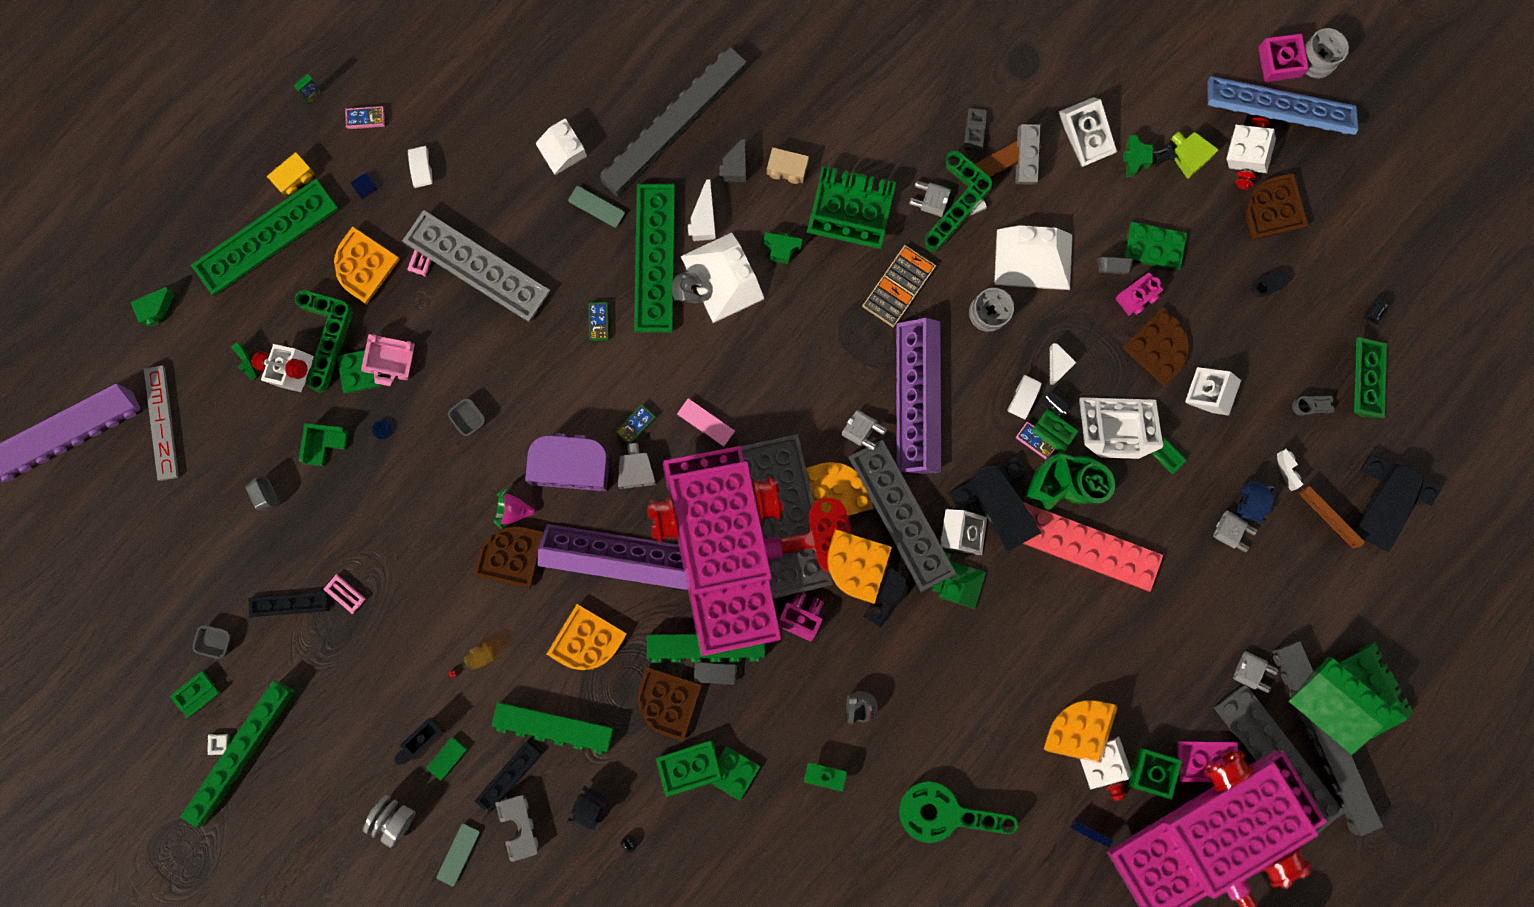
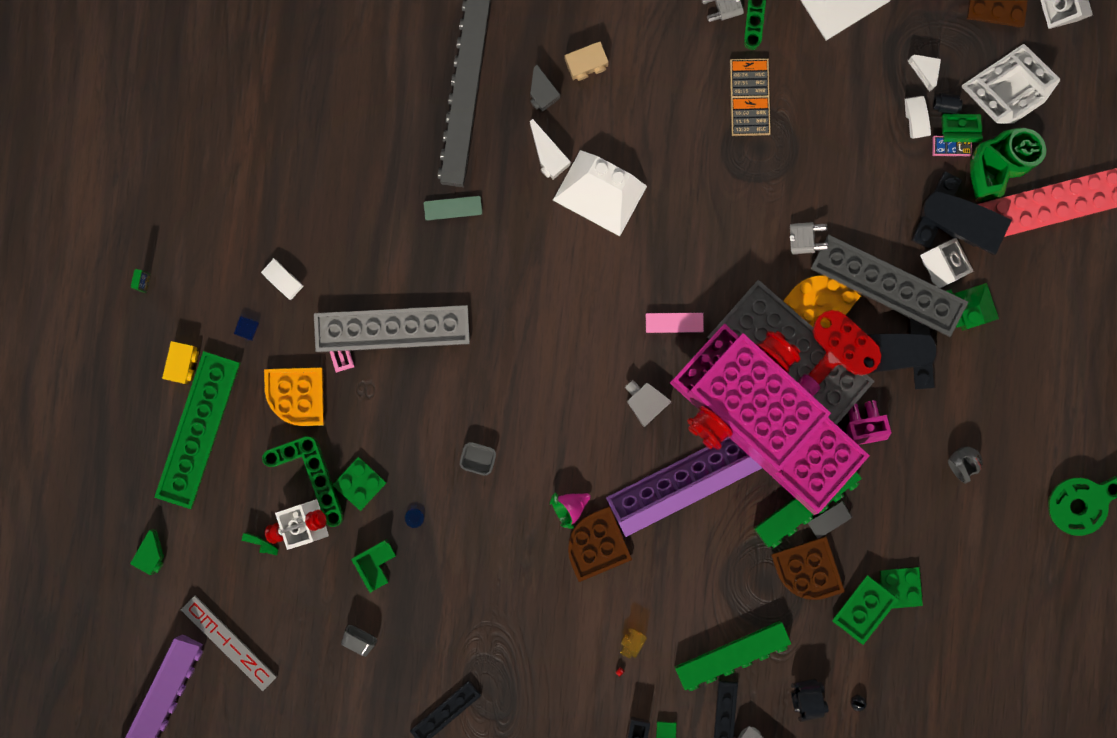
camera: 35 degrees left, 5 degrees up
(356, 604) = (483, 671): bright pink tile -> none
(365, 117) = (203, 270): tile -> none
(387, 358) = (377, 457): bright pink piece -> none
(561, 147) = (387, 179): white slope -> none
(567, 463) = (590, 436): medium lavender brick -> none
(586, 641) = (708, 568): light orange plate -> none
(598, 321) = (525, 302): tile -> none
(635, 424) = (618, 365): tile -> none
(654, 258) = (533, 217): green plate -> none
(683, 287) = (575, 223): dark grey helmet -> none
(782, 246) = (631, 132): green brick -> none
(825, 776) = (977, 537): green brick -> none
(850, 209) = (666, 61): green slope -> none
(857, 565) = (885, 351): light orange plate -> none
(918, 396) = (831, 178): medium lavender slope -> none
(1001, 306) = (846, 55): light grey wheel -> none
(1169, 457) = (1069, 83): green tile -> none

